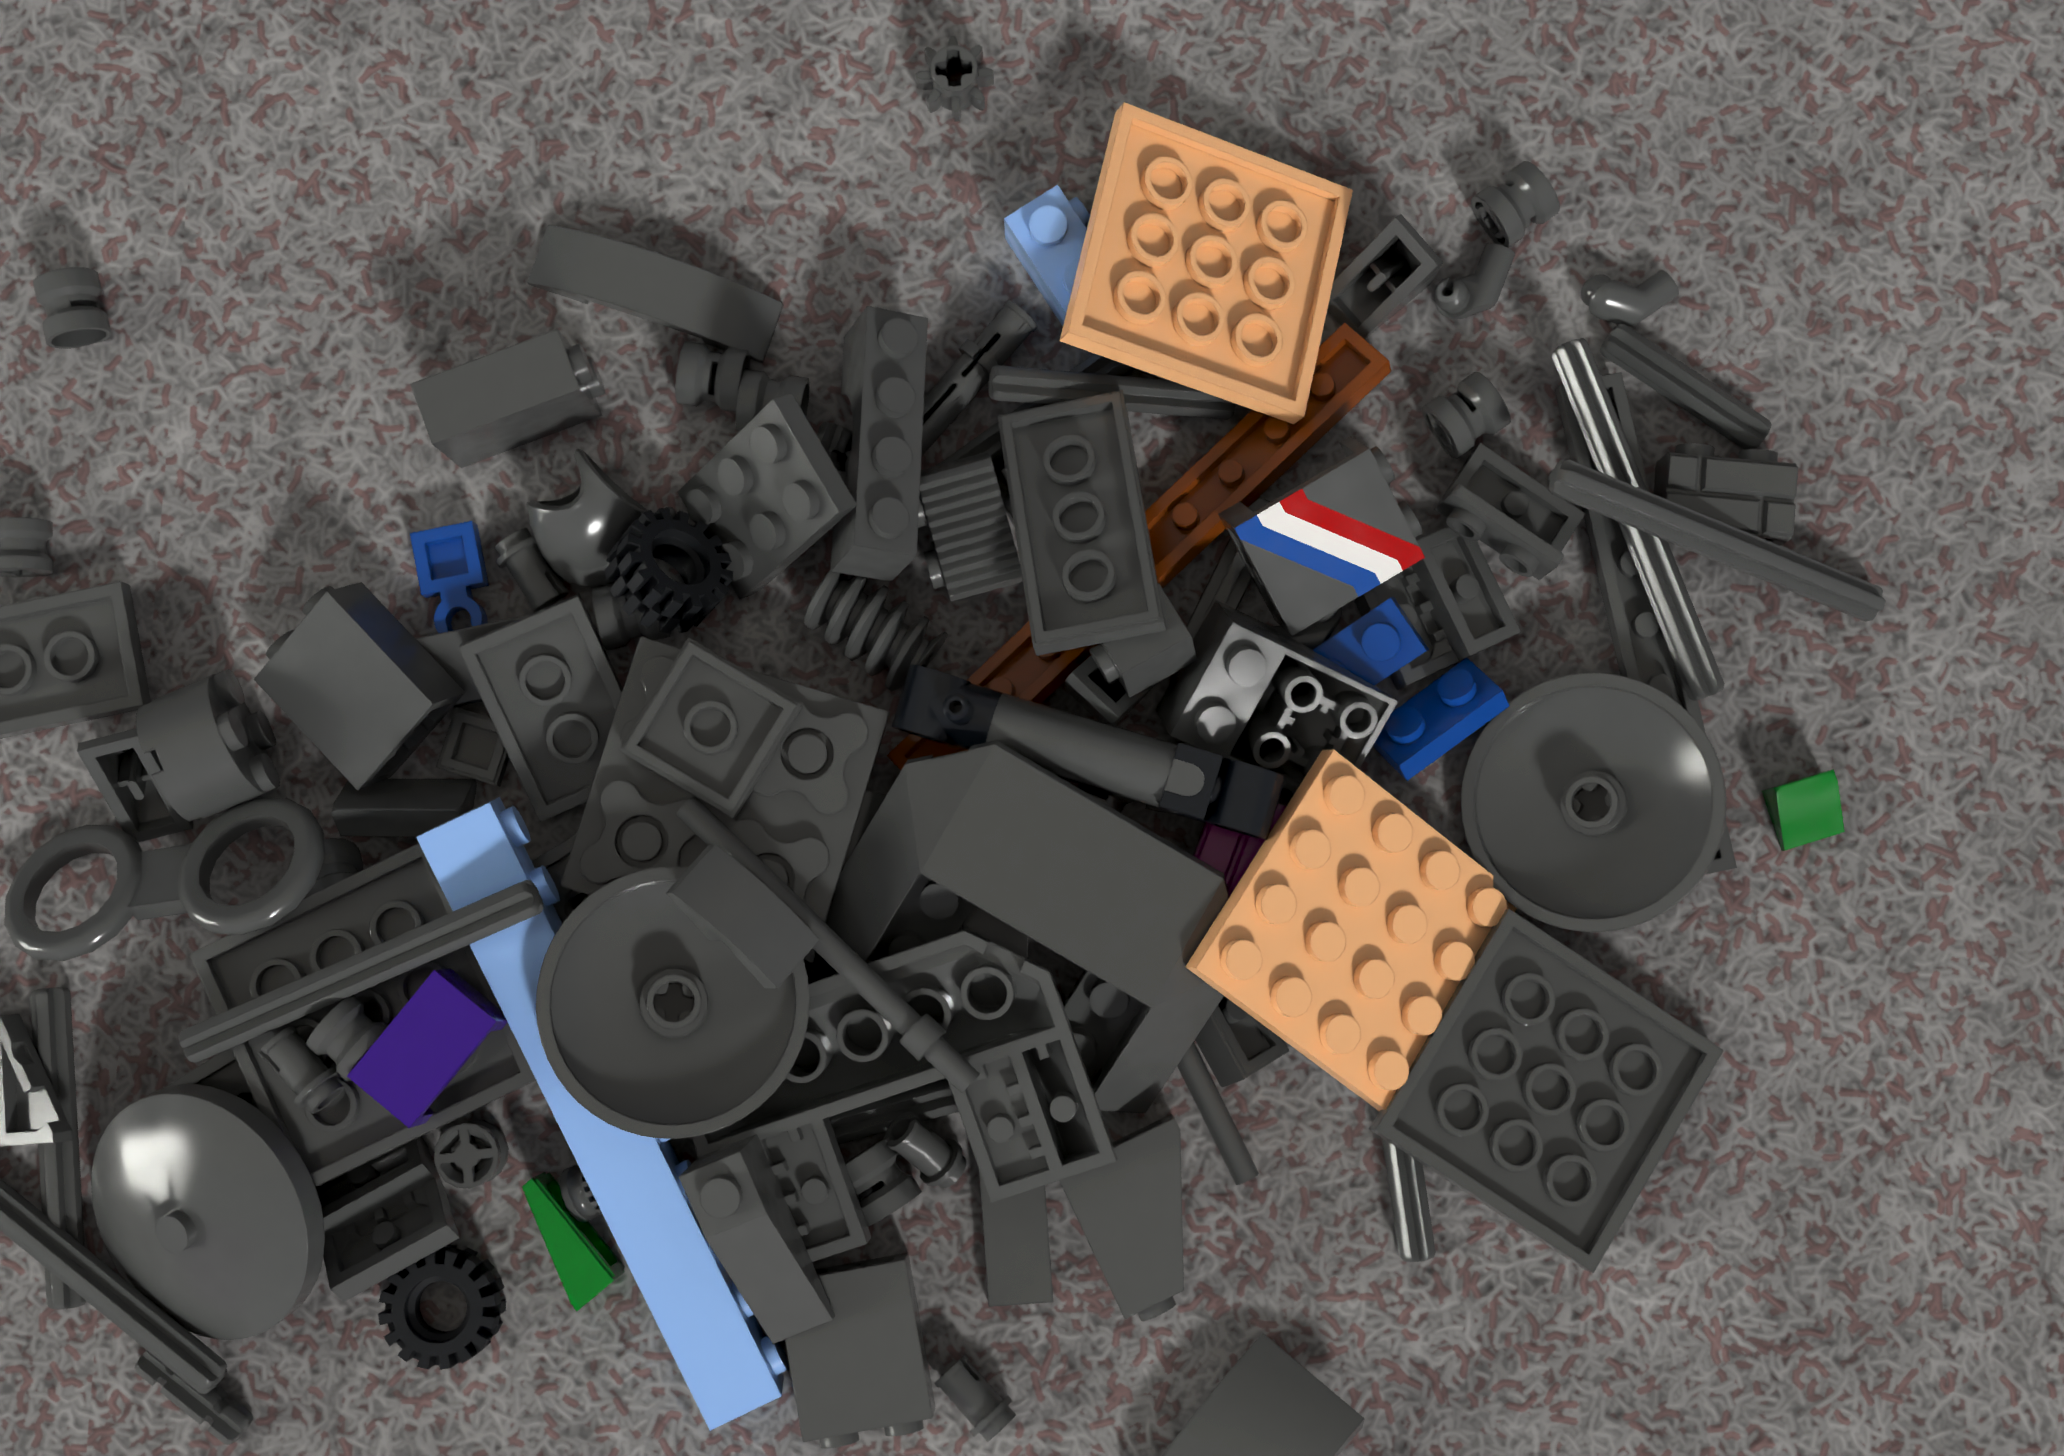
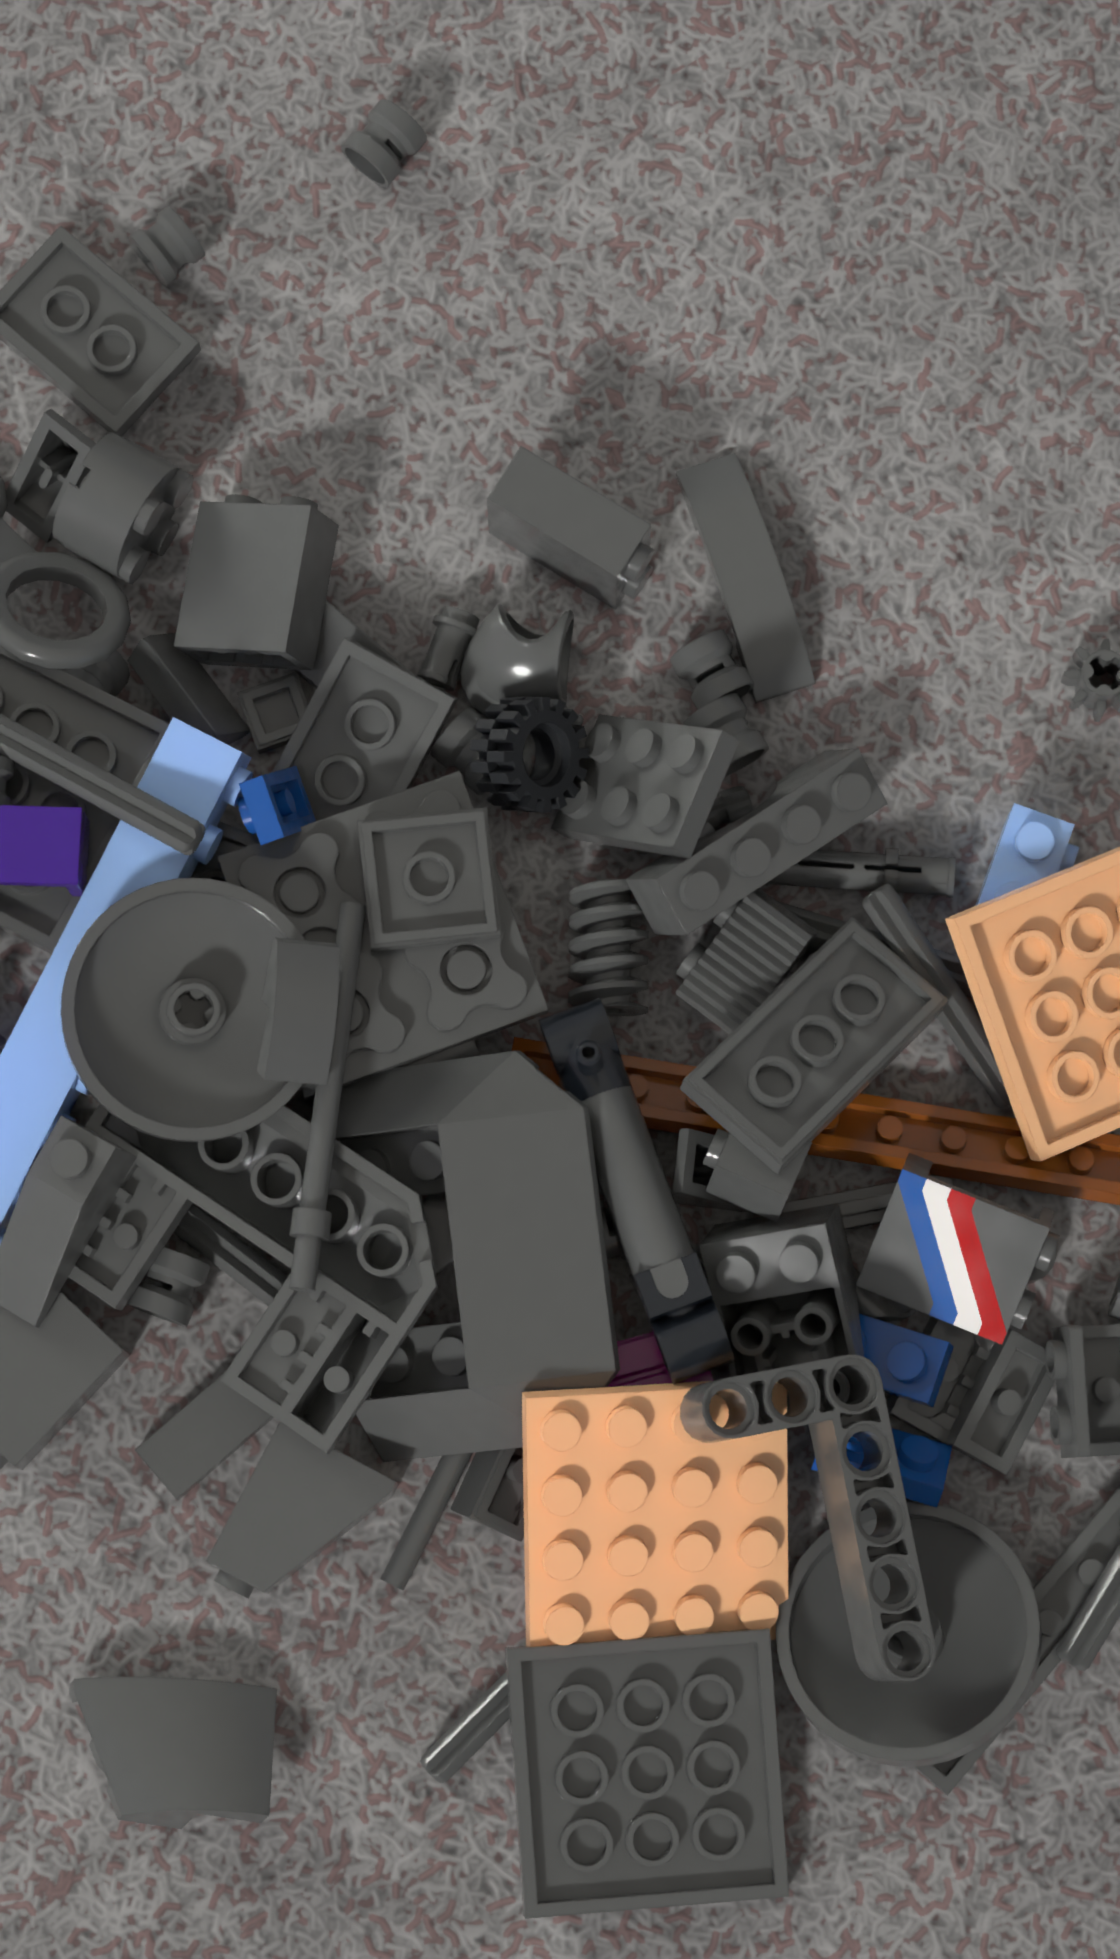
camera: 50 degrees right, 5 degrees down
(449, 566) = (402, 584): blue plate -> none
(554, 807) = (275, 805): none -> blue plate
(936, 1158) = (222, 1305): dark grey pin -> none
(976, 1399) = (53, 1495): dark grey pin -> none
(1458, 769) = (844, 1494): none -> dark grey beam
(1805, 809) = (1041, 1821): green slope -> none

